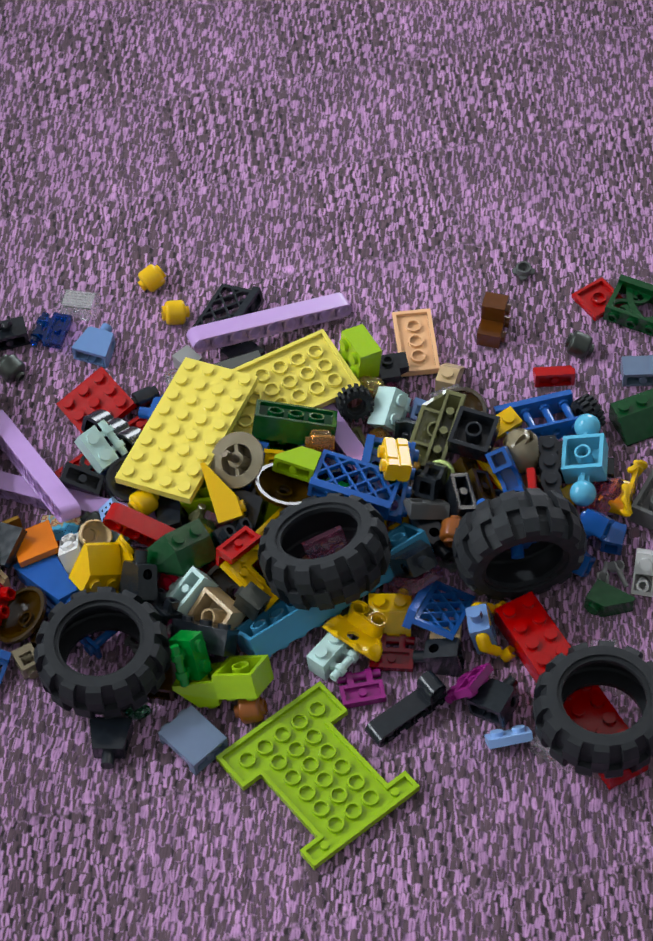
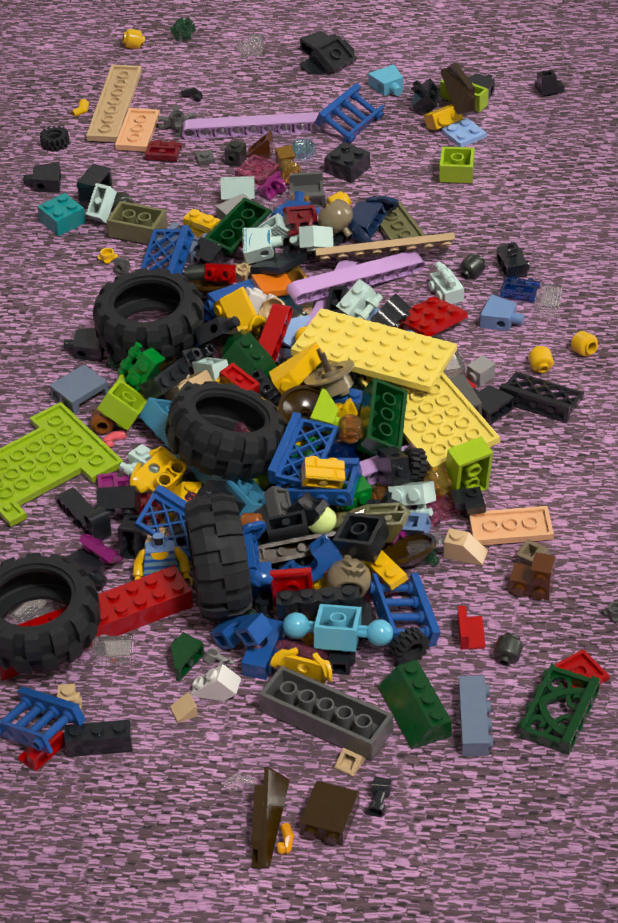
camera: 90 degrees right, 10 degrees down
(44, 390) = (446, 285): none -> light aqua brick
(268, 322) = (523, 415): lavender beam -> none
(275, 701) = (114, 436): none -> coral arm
(363, 416) = (393, 467): none -> black torso
(399, 669) = (119, 500): none -> black brick
(462, 319) = (527, 552): none -> dark tan brick

